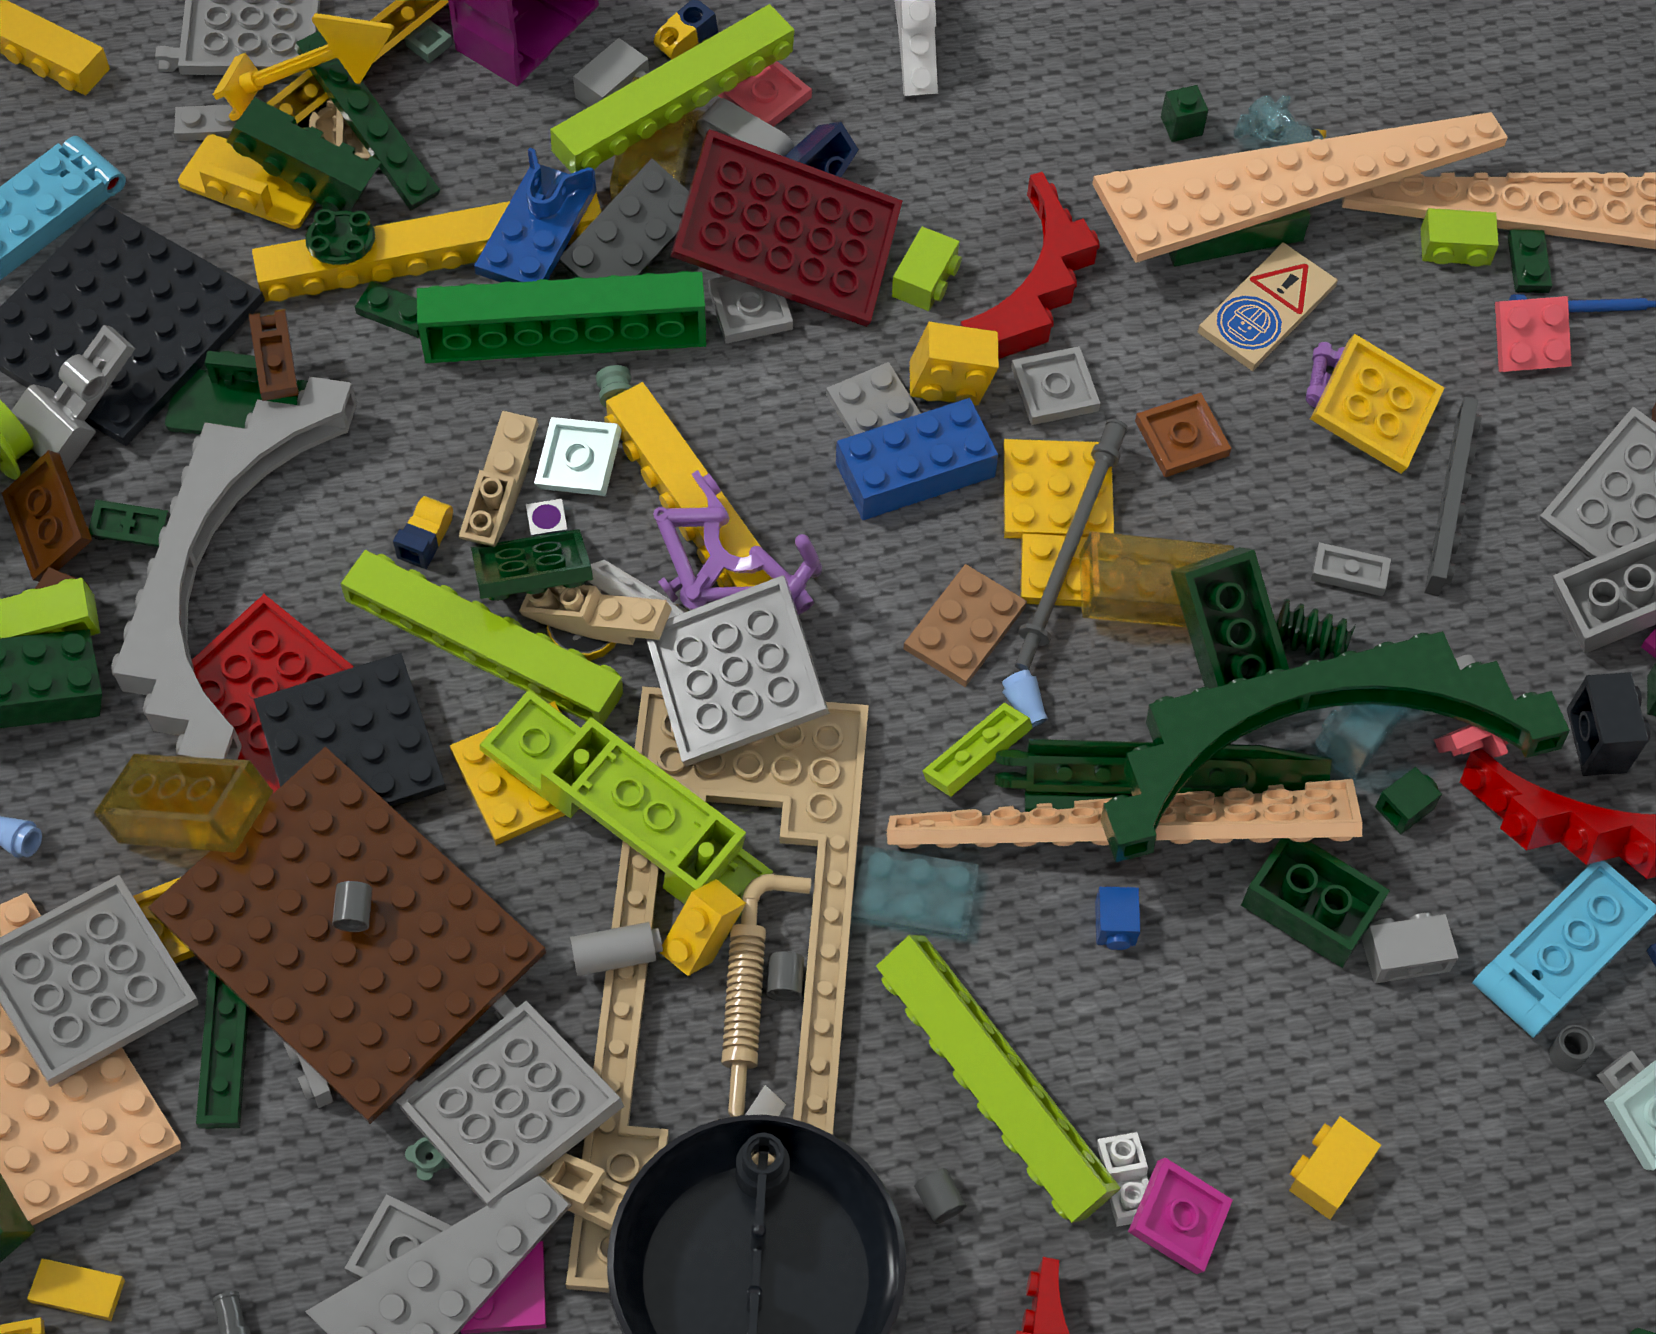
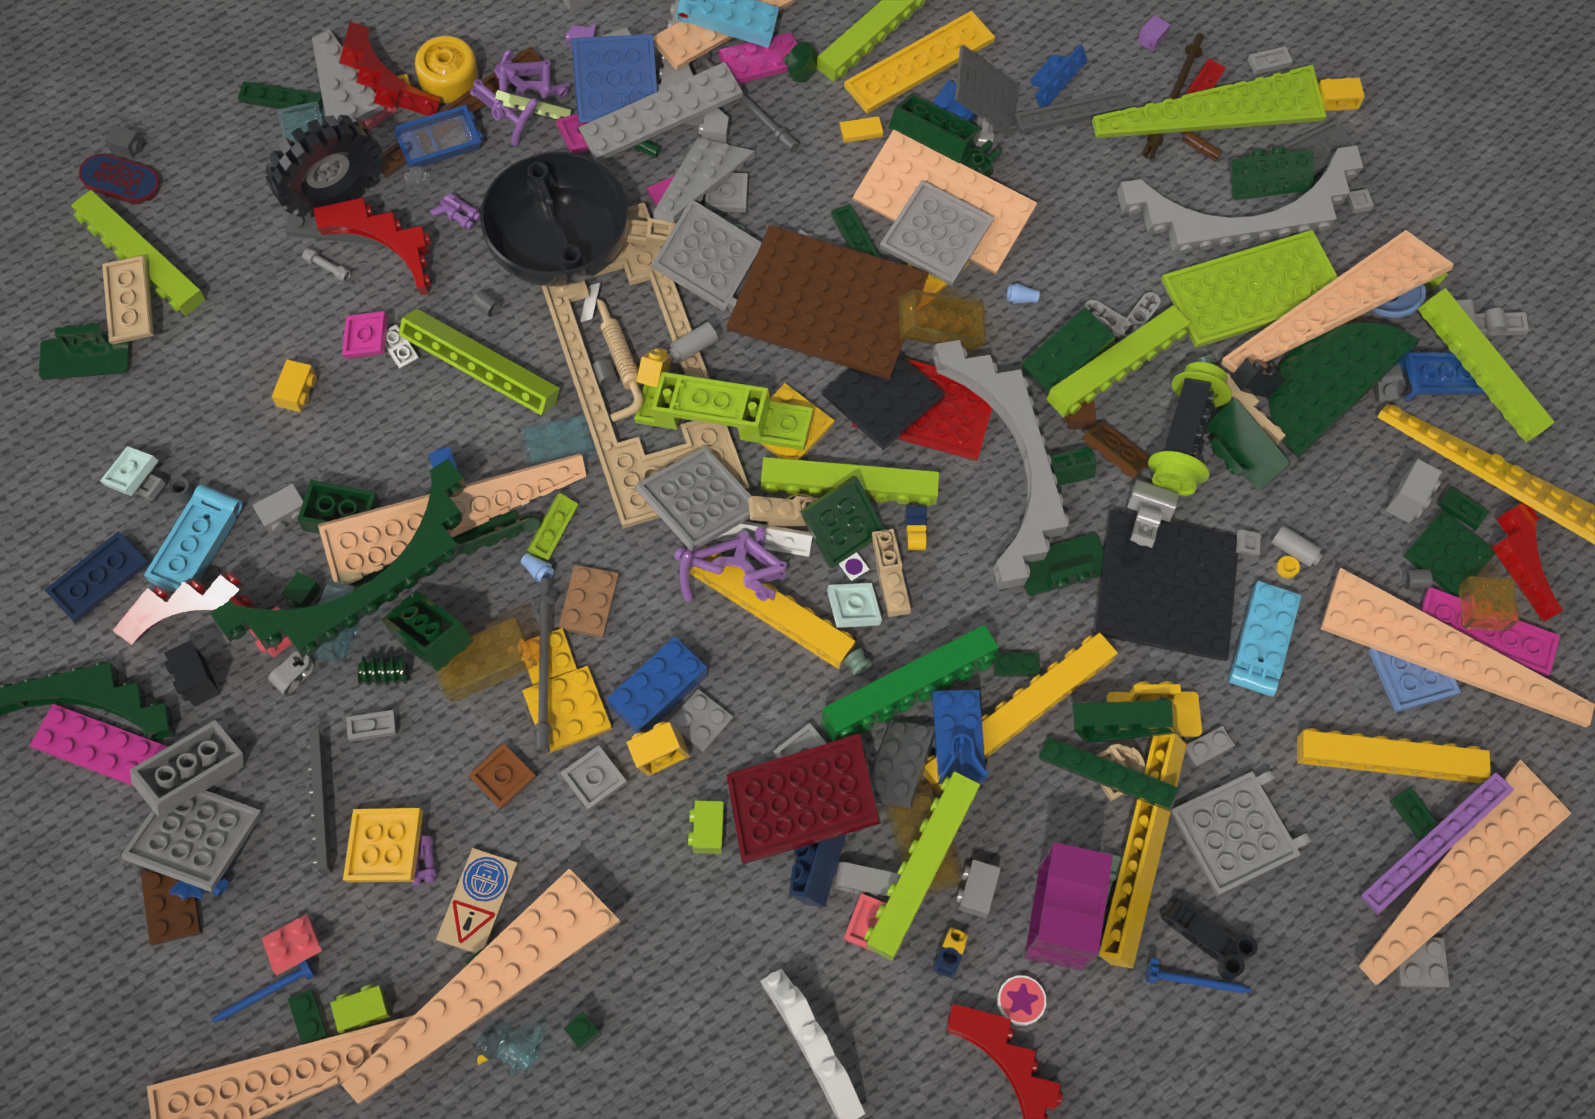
camera: 155 degrees right, 5 degrees up
(273, 355) = (1054, 575): reddish brown plate -> none
(340, 236) = (1069, 676): dark green dish -> none
(348, 39) = (1201, 768): yellow piece -> none
(352, 906) = (827, 297): dark grey beam -> none
(1025, 315) = (632, 815): red arch -> none

